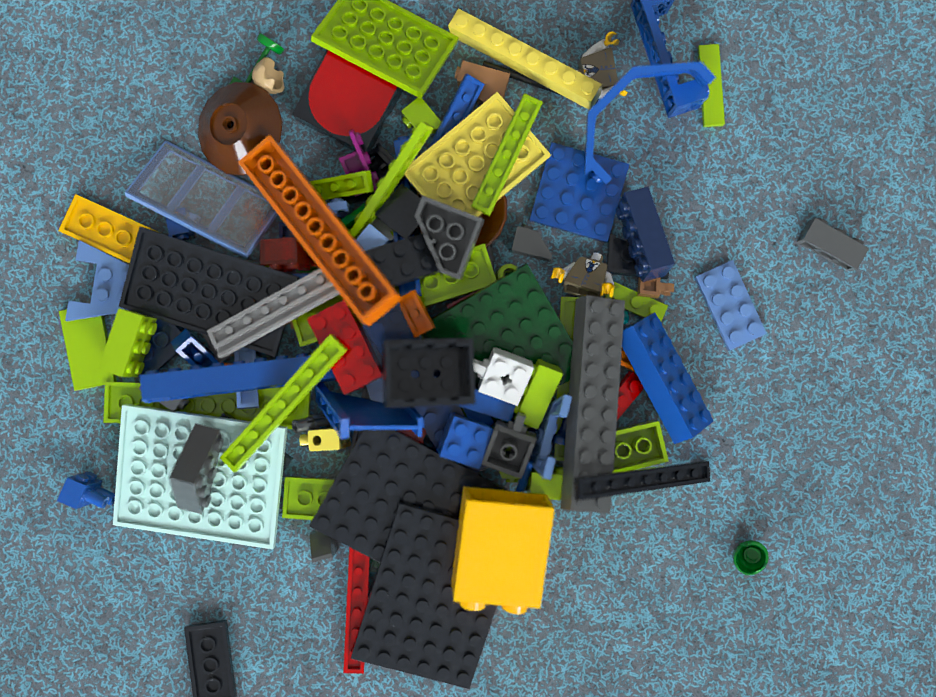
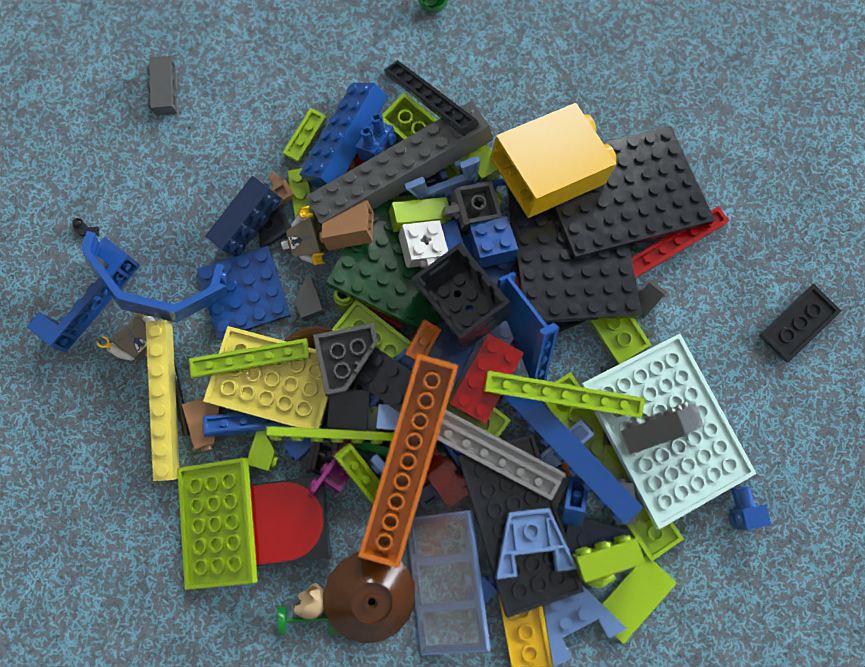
camera: 120 degrees left, 10 degrees down
(191, 293) = (531, 533): none -> medium blue wing
(311, 422) = (570, 375): dark grey pin -> none
(324, 439) = (566, 345): light yellow torso -> none
(565, 319) = (349, 227): none -> medium nougat slope
(637, 402) = (375, 138): none -> blue brick
(692, 344) = (304, 135): none -> lime plate
(713, 107) = (76, 262): lime tile -> none
(730, 305) = (257, 128): medium blue plate -> none
(735, 87) = (81, 228): none -> black arm

